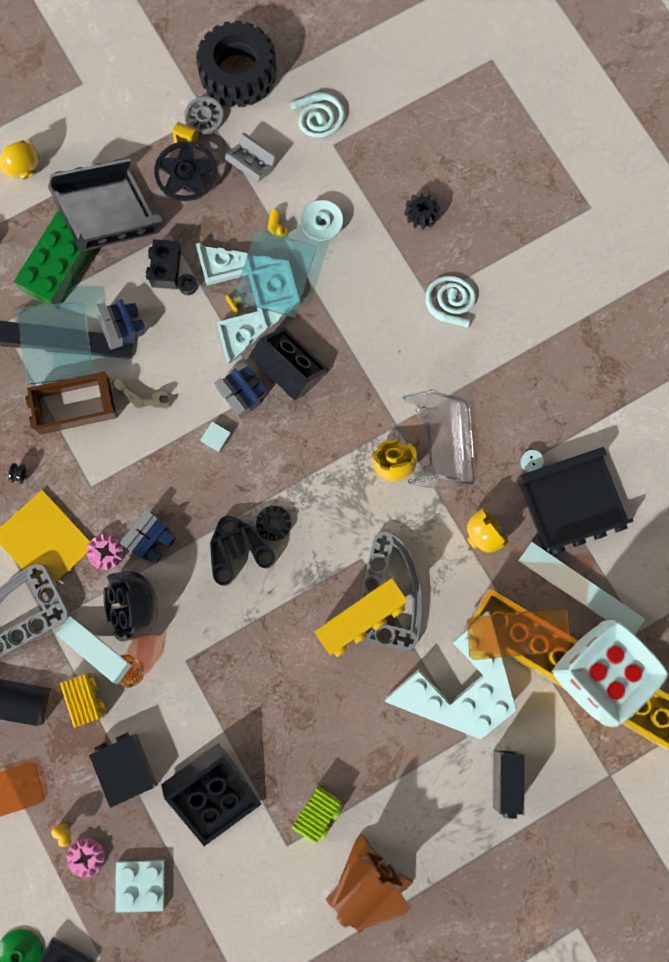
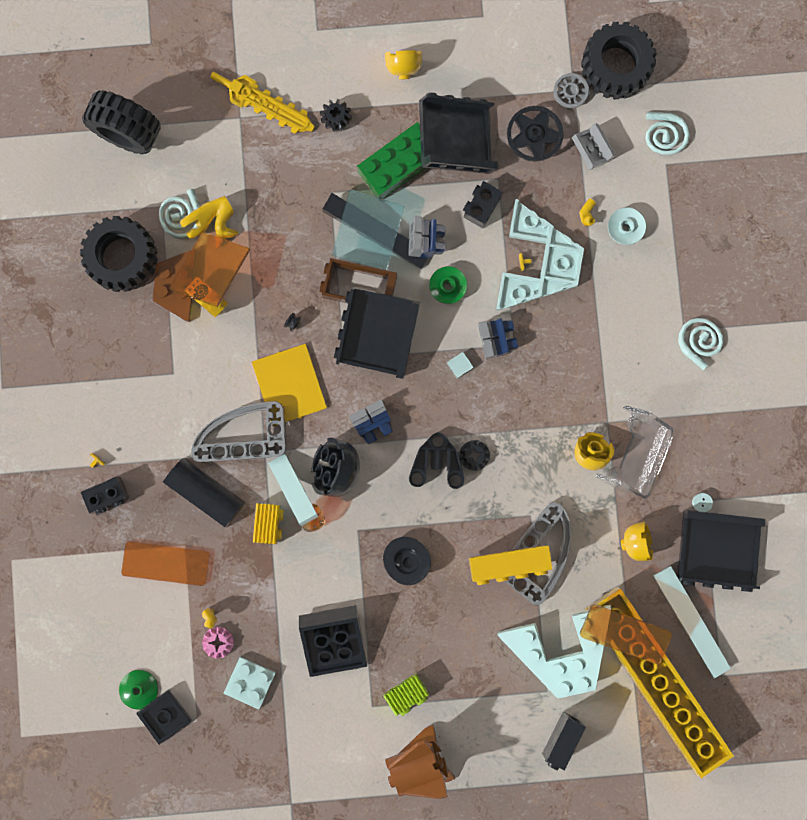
camera: 25 degrees right, 5 degrees up
(110, 441) = (377, 331): none -> black panel
(114, 547) = (333, 406): bright pink gear -> none
(122, 769) = (274, 590): black brick -> none
(140, 402) = (422, 312): dark tan piece -> none
(162, 351) = (451, 276): none -> green dish
(184, 133) = (548, 100): yellow brick -> none
(187, 277) = (488, 226): black bush -> none
(251, 668) = (406, 560): none -> black hat
(275, 273) = (568, 253): clear light blue piece -> none
(288, 362) = (545, 332): black slope -> none
(424, 218) = (709, 249): black gear -> none
(610, 673) = (682, 697): light aqua piece -> none

